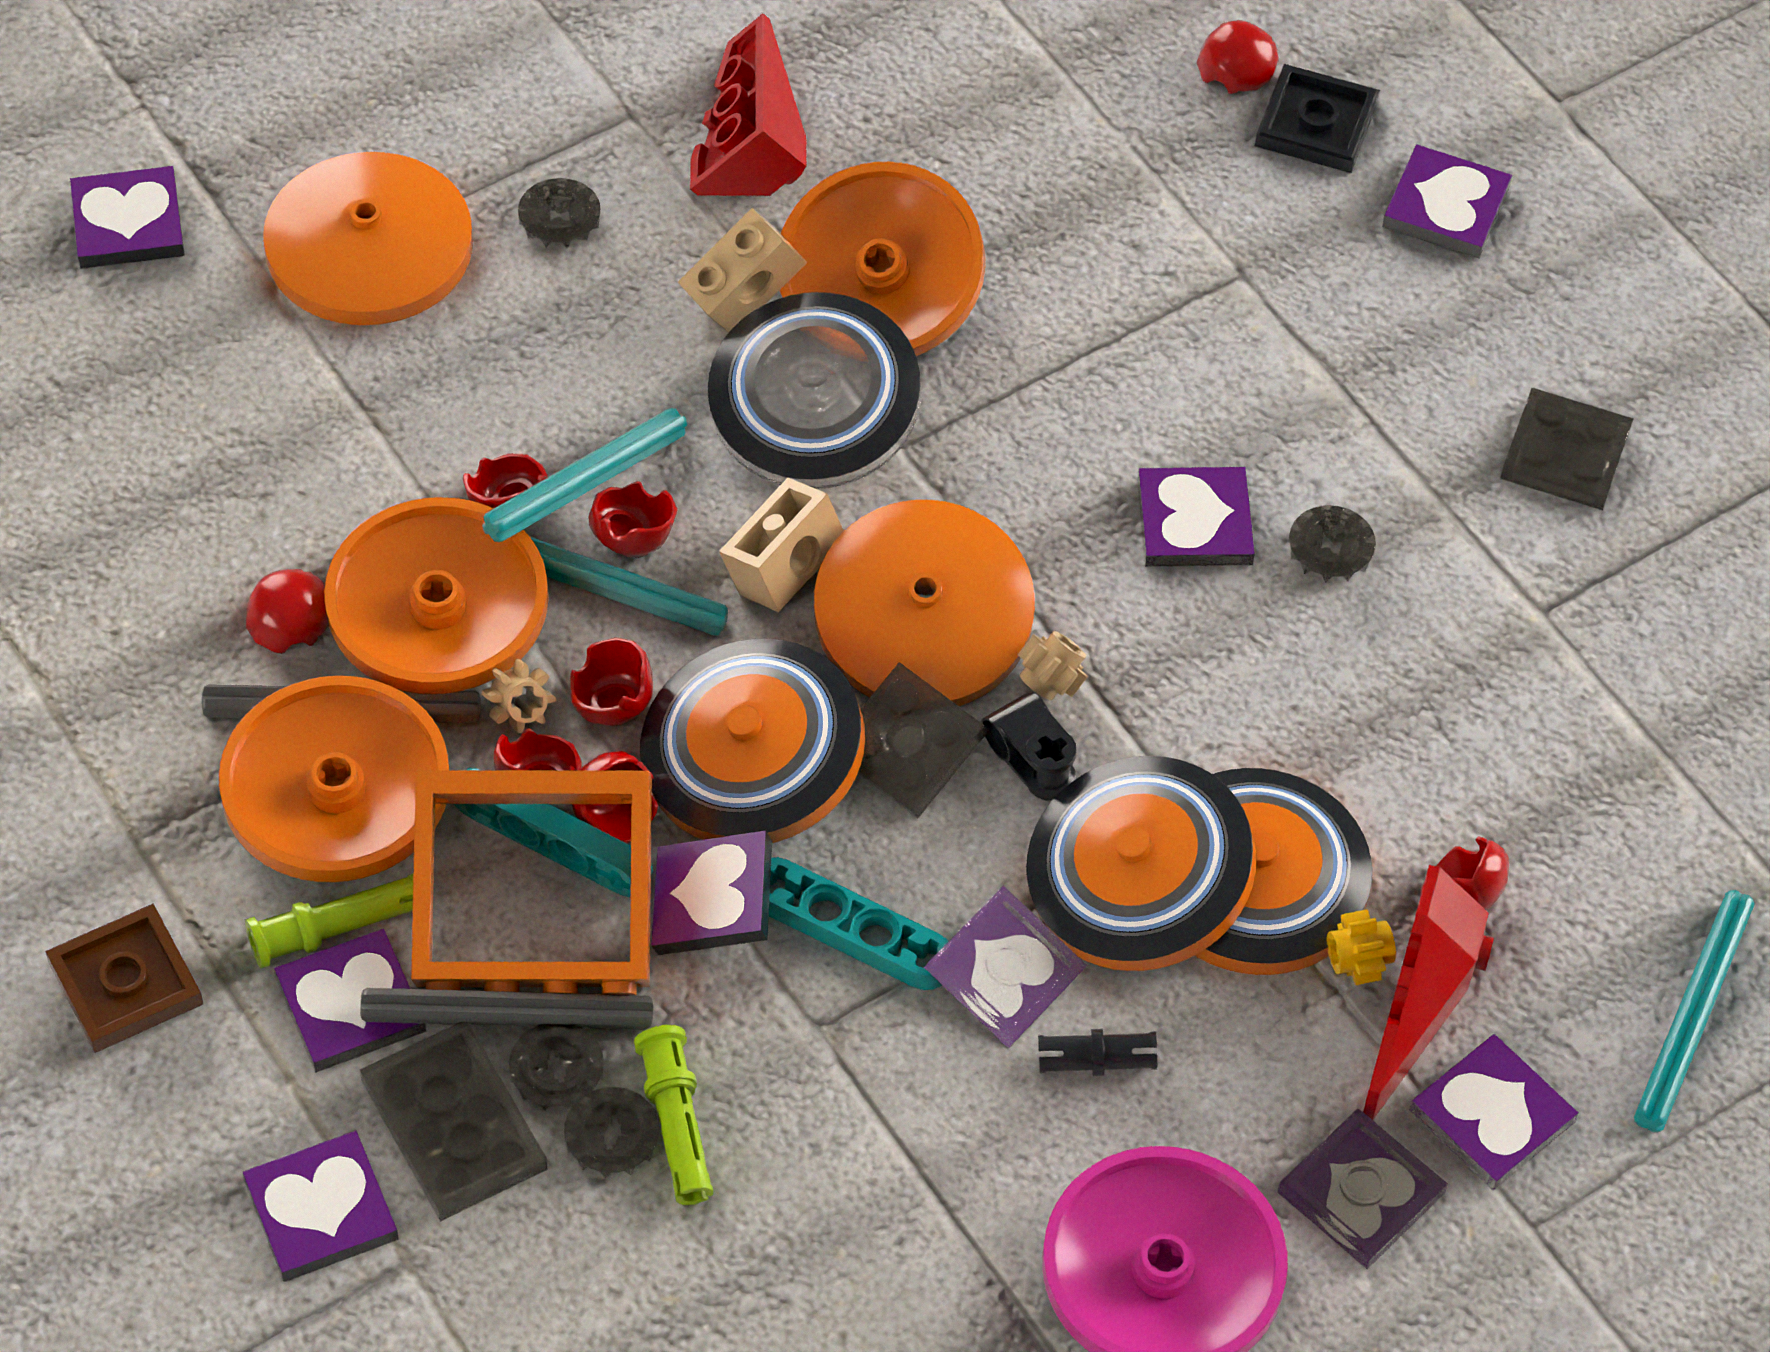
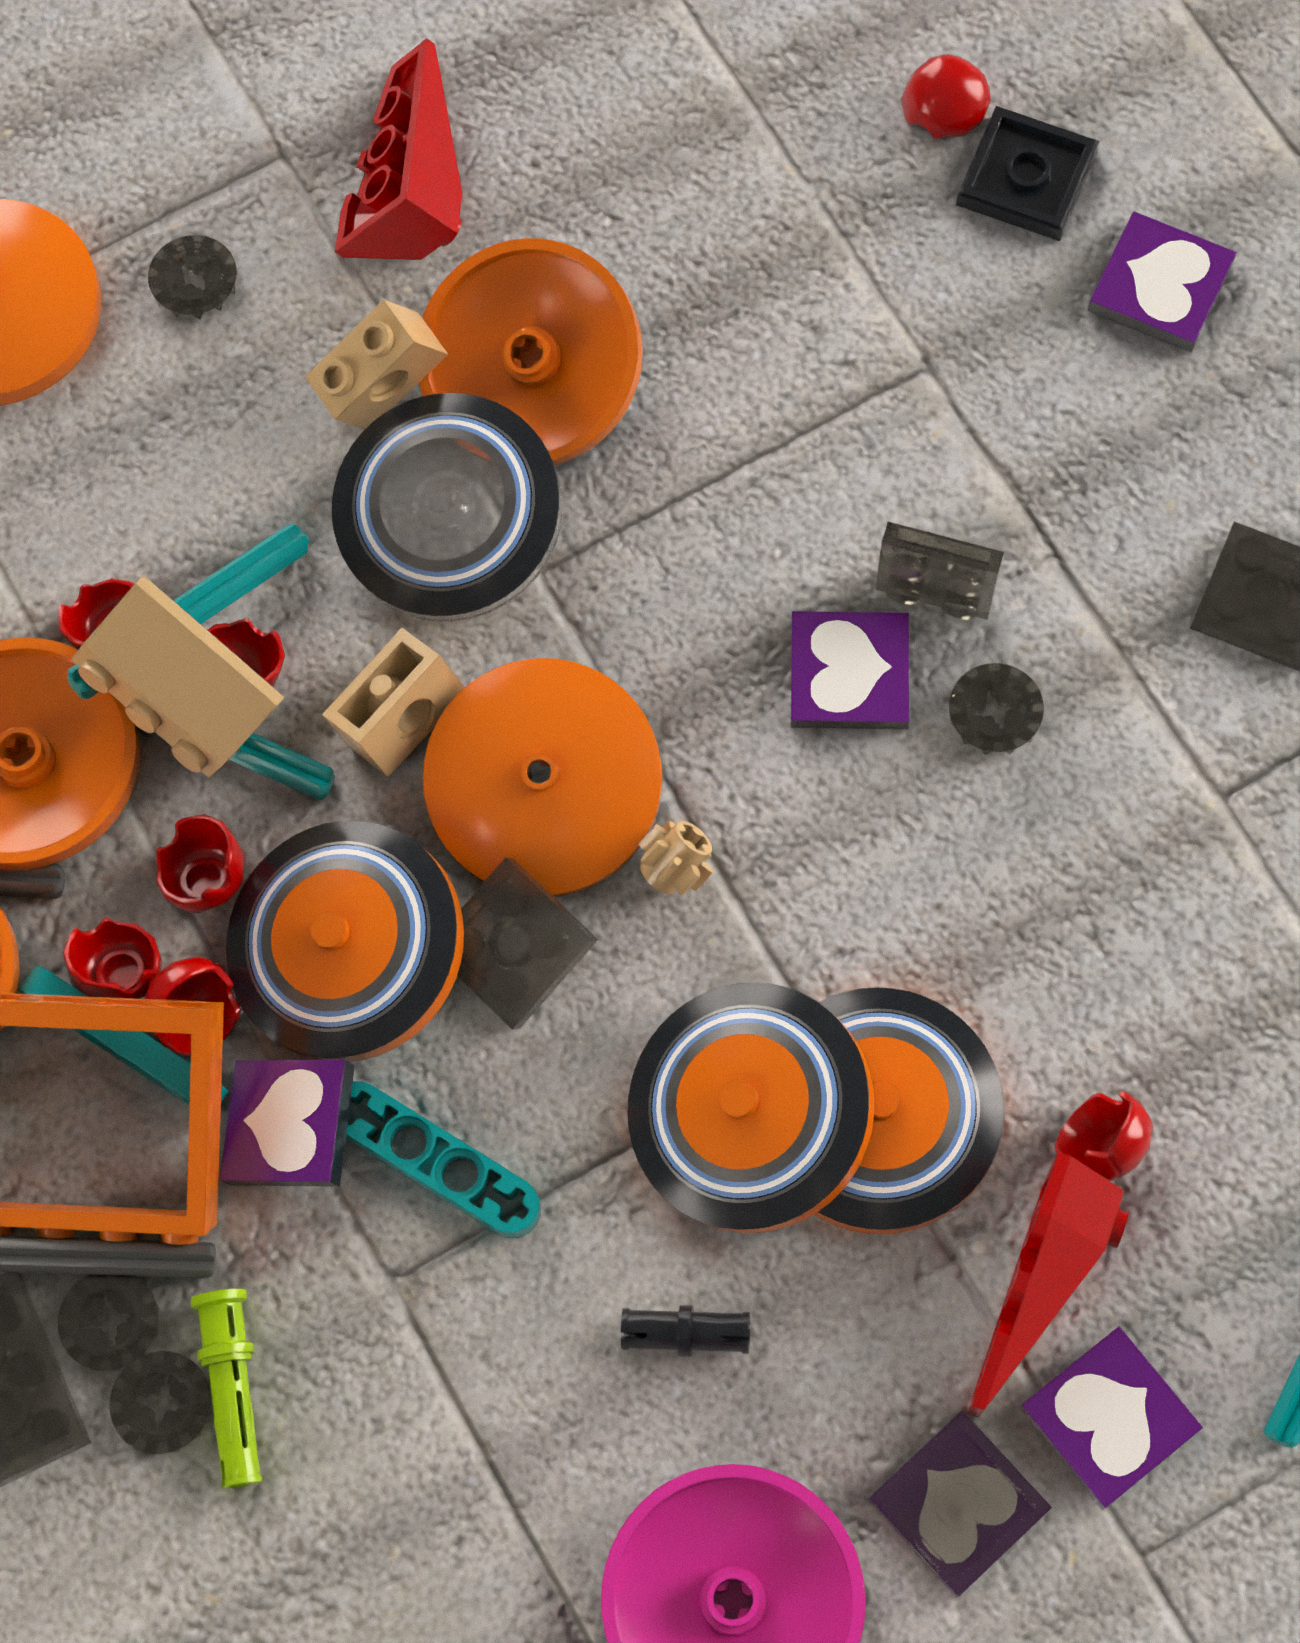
camera: 10 degrees right, 15 degrees up
(528, 706) = (114, 871): tan gear -> none
(590, 510) = (175, 678): none -> tan slope
(1005, 966) = (595, 1223): clear tile -> none
(1032, 745) = (645, 945): black piece -> none
(1271, 424) = (938, 571): none -> clear smoke plate
(1361, 947) = (982, 1218): yellow gear -> none

